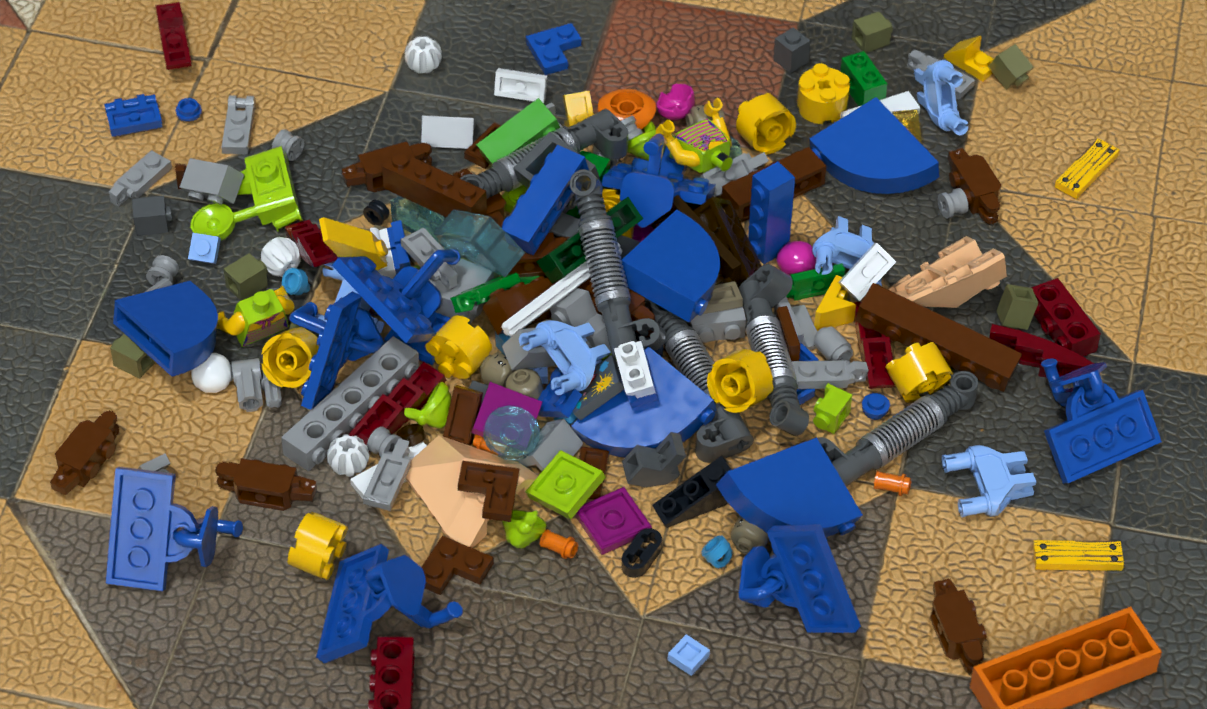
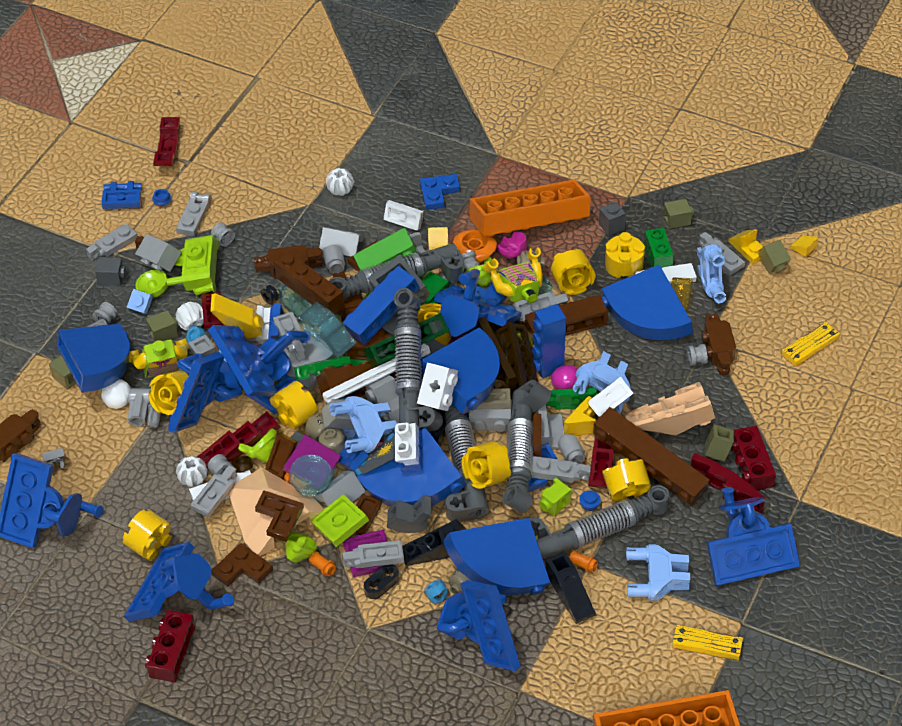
camera: 15 degrees right, 0 degrees up
(265, 483) = (127, 482): reddish brown hinge -> none
(310, 291) = (202, 346): none -> light grey tile
(348, 403) = (204, 432): light grey brick -> none
(447, 154) = (334, 258): none -> light grey brick
(625, 520) = (374, 555): none -> light grey hinge
(653, 276) = (429, 392): none -> white brick
(685, 51) = (529, 207): none -> orange brick
(688, 655) = (390, 664): light blue plate -> none
(887, 516) = (569, 587): none -> black slope
(957, 625) = (596, 678): reddish brown hinge -> none
(1041, 47) = (805, 245): none -> yellow slope

